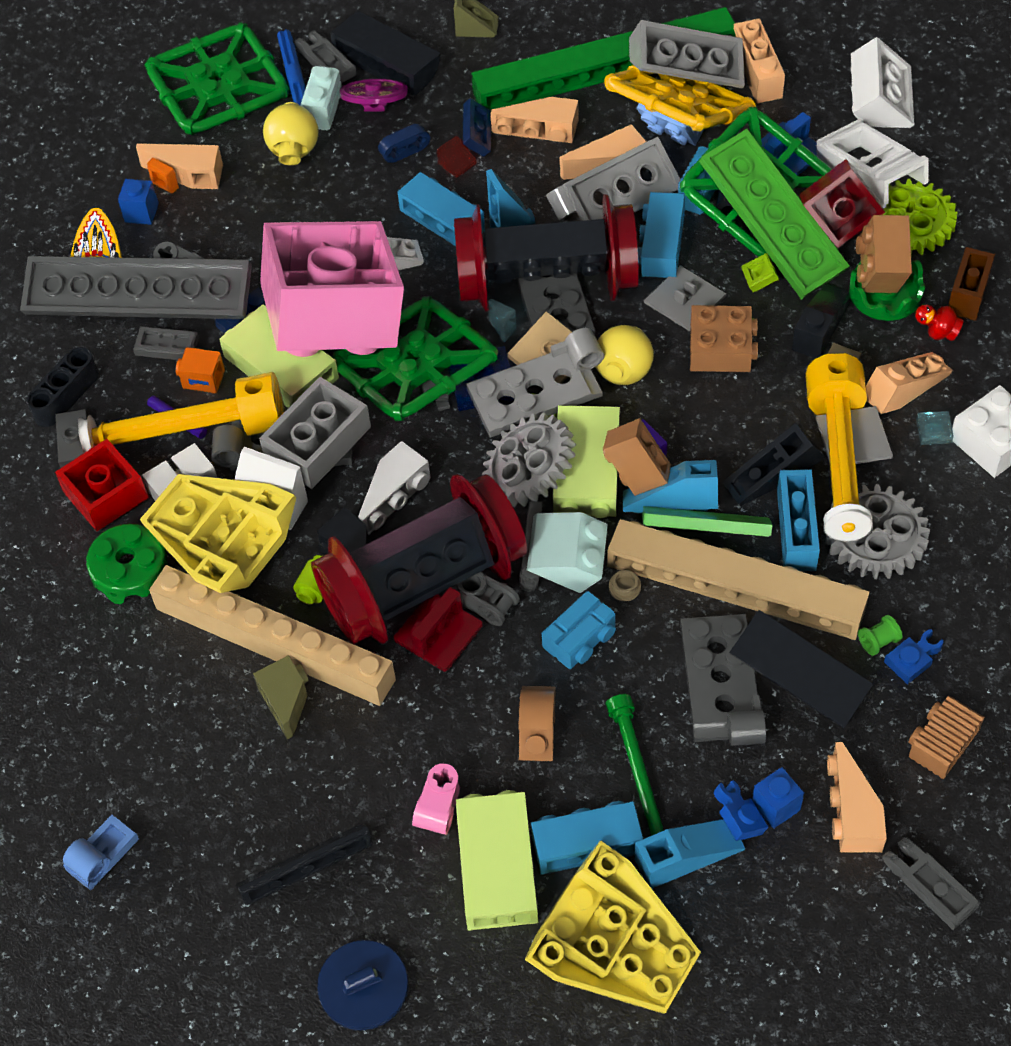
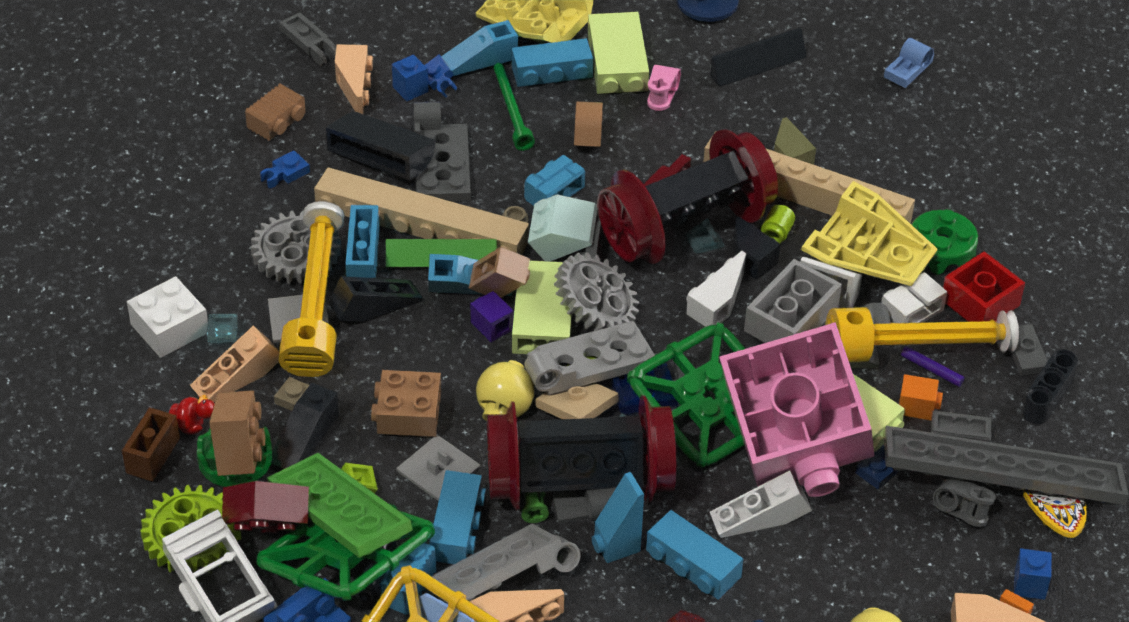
camera: 175 degrees right, 10 degrees down
(880, 635) = (308, 176): bright green bush -> none

